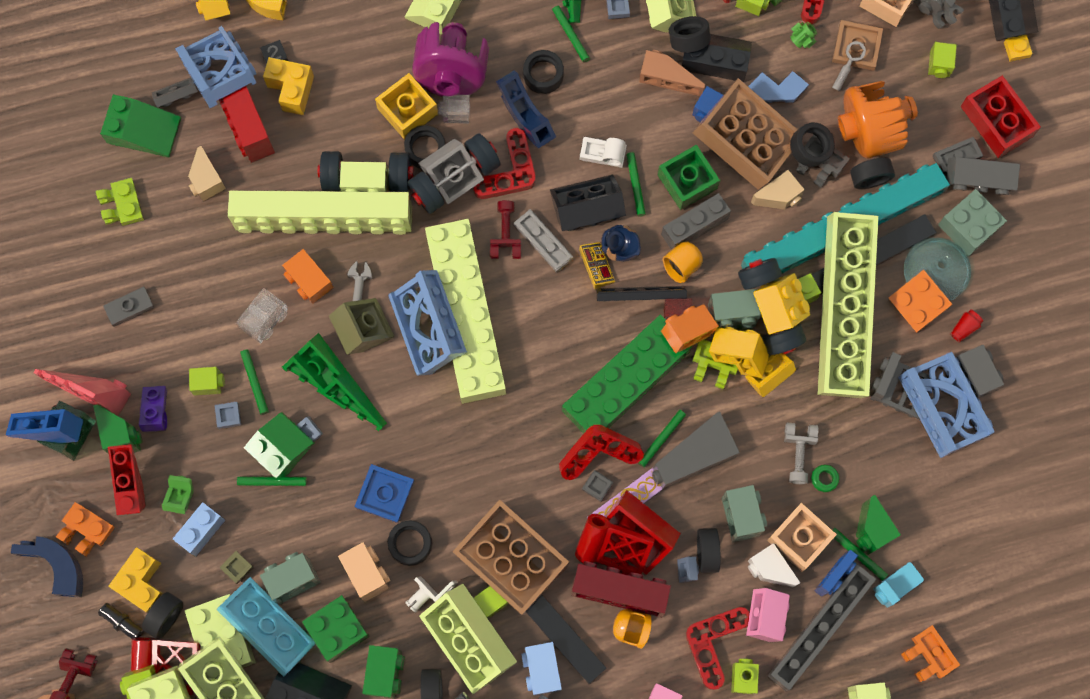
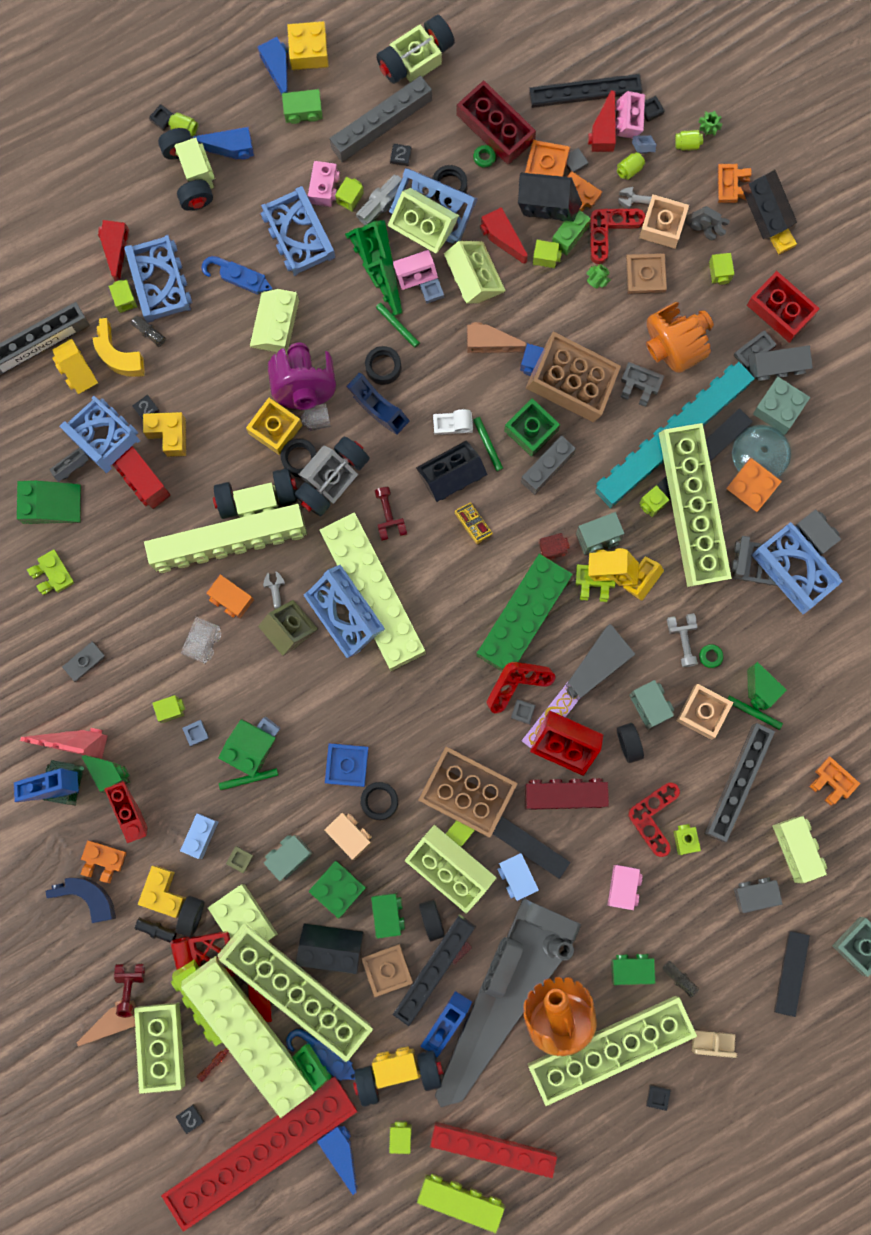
camera: 10 degrees left, 5 degrees up
(152, 410) = (130, 744): dark purple plate -> none
(178, 494) = (173, 811): bright green bracket -> none
(204, 177) = (116, 532): tan slope -> none
(254, 382) = (209, 698): green bar -> none
(266, 626) = (279, 902): medium azure tile -> none
(323, 369) = (264, 672): green wedge -> none
(426, 592) = (403, 840): white bracket -> none
(518, 170) = (384, 457): red beam -> none
(543, 240) = (422, 513): light grey tile -> none
(598, 534) = (535, 756): red piece -> none
(620, 243) = (489, 499): dark blue hair -> none
(632, 627) = (584, 823): light orange helmet -> none
(641, 293) = (517, 538): black tile -> none
(663, 436) = (567, 656): green bar -> none
(687, 259) = (548, 498): light orange helmet -> none
(687, 569) = (617, 763): sand blue plate -> none
(689, 328) = (567, 559): orange brick -> none
(698, 30) = (497, 294): black tyre -> none
(720, 58) = (528, 313): black slope -> none
(768, 615) = (693, 783): bright pink brick -> none
(772, 567) = (685, 742): white slope -> none
(779, 193) = (612, 421): tan slope -> none
(779, 303) = (637, 519): brick -> none
(787, 91) = (581, 333): medium blue tile -> none
(823, 134) = (641, 365): black tyre -> none
(841, 568) = (738, 741): blue plate -> none
(846, 68) = (641, 298): light grey piece -> none
(872, 173) = (687, 384): black tyre -> none
(898, 585) = (793, 730): medium azure bracket -> none
(966, 325) = (797, 495): red cone -> none

